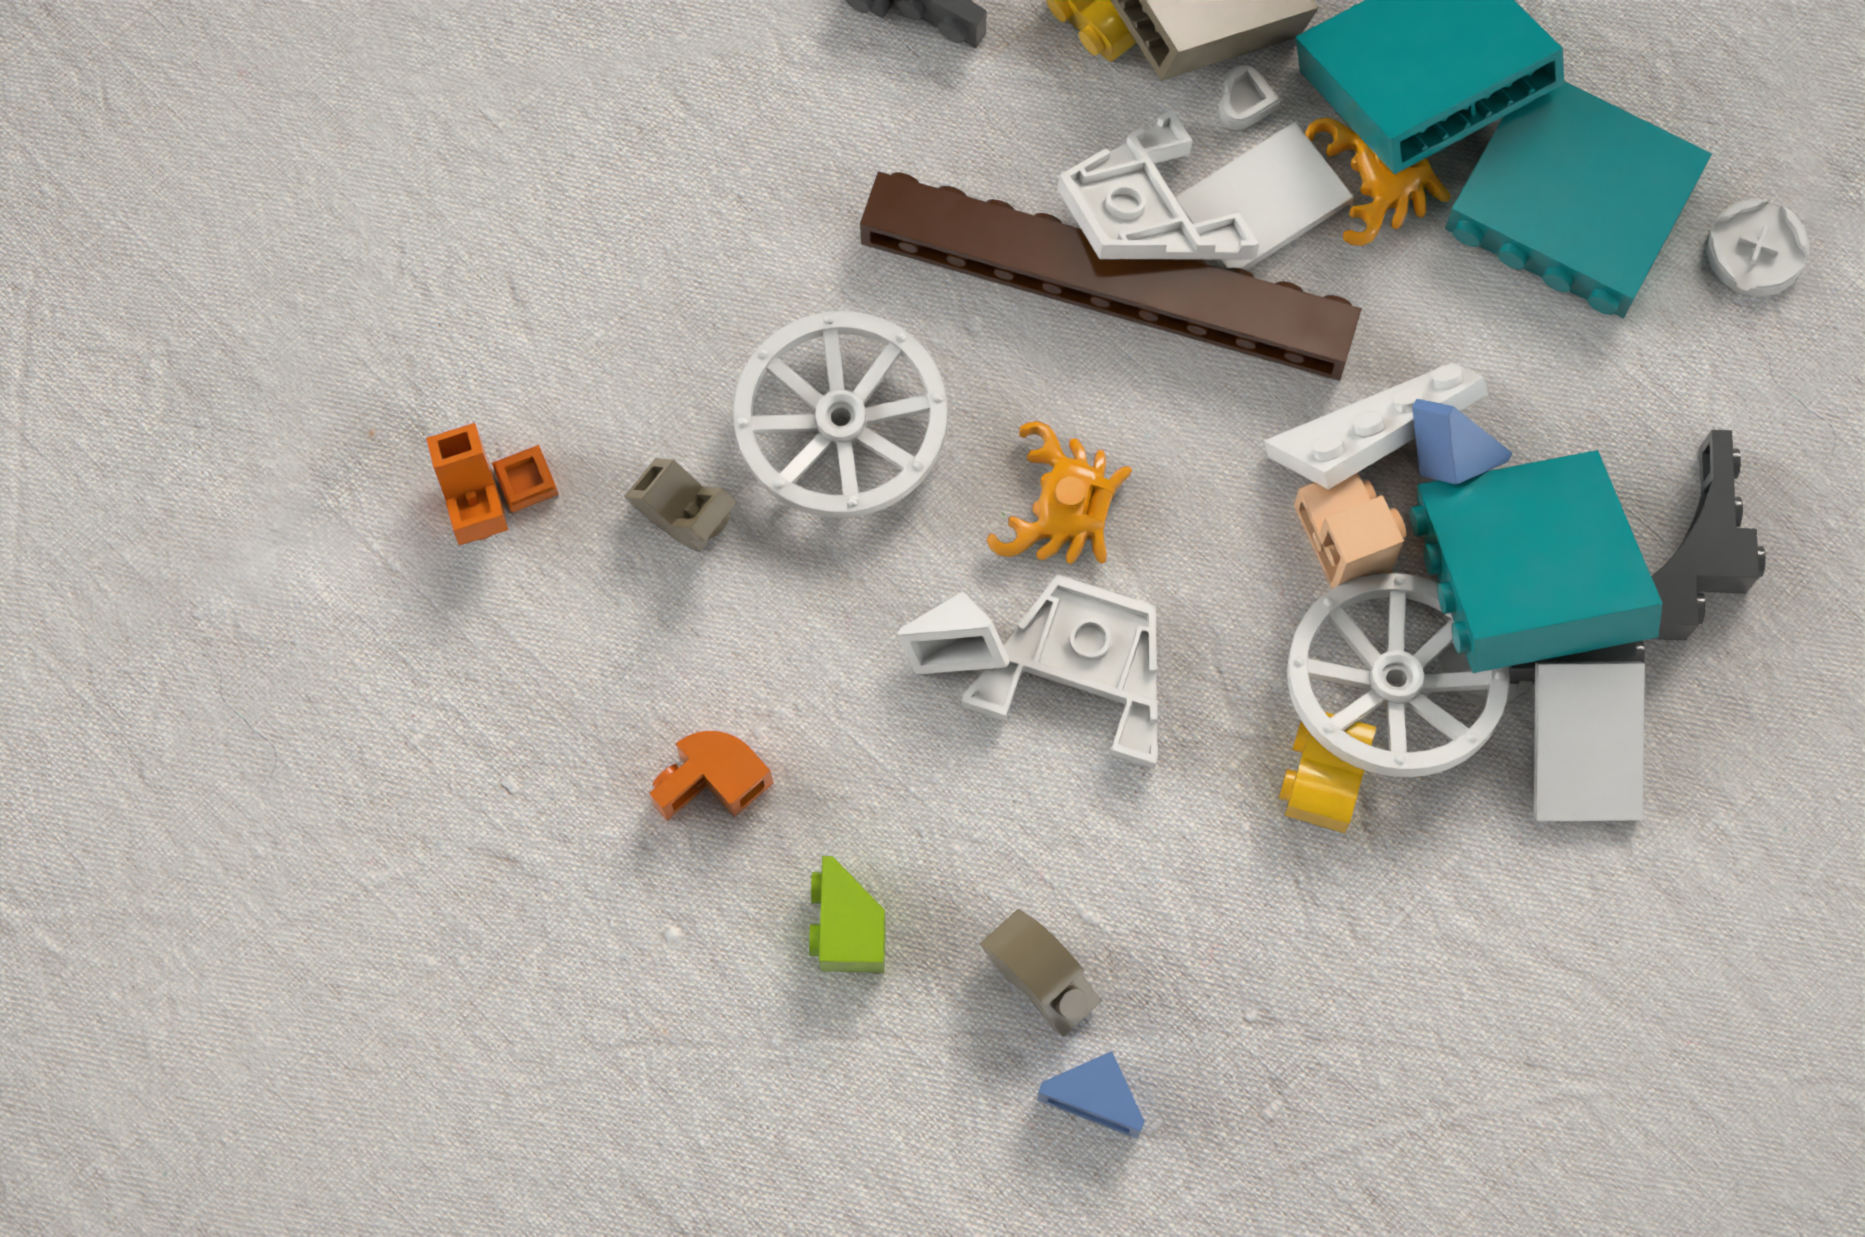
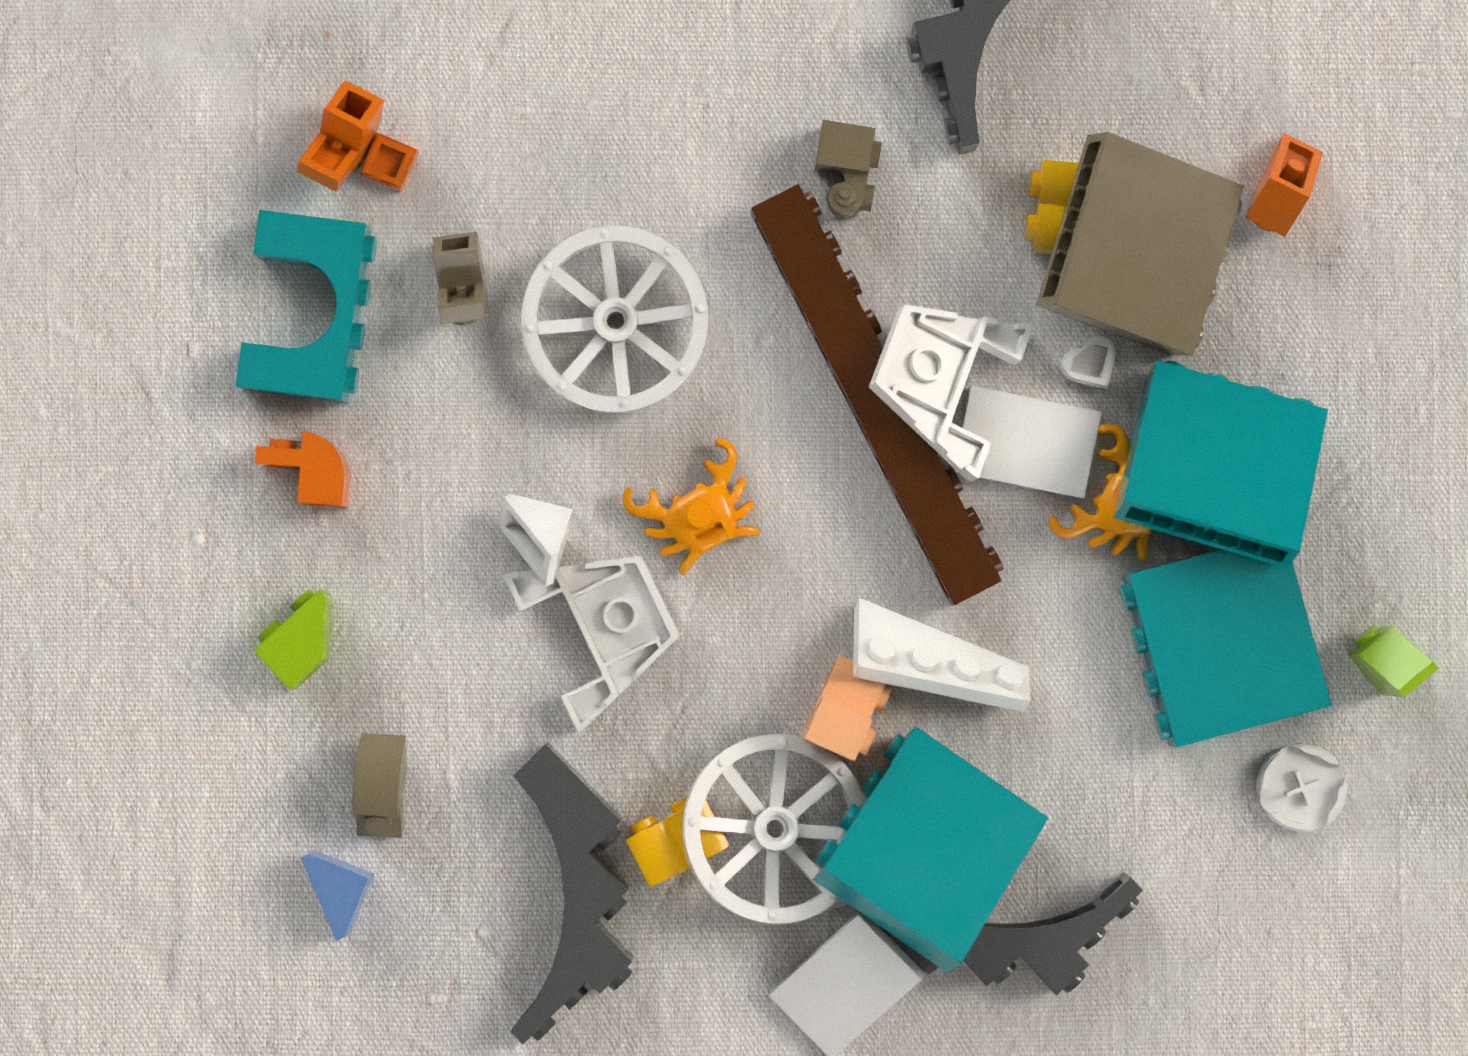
camera: 40 degrees right, 15 degrees up
(557, 584) = (325, 366): none -> teal arch
(894, 120) = (848, 153): none -> dark tan brick
(1303, 880) = (587, 950): none -> dark grey arch
(1452, 445) = (959, 727): medium blue slope -> none
(1718, 81) = (1391, 661): none -> lime slope

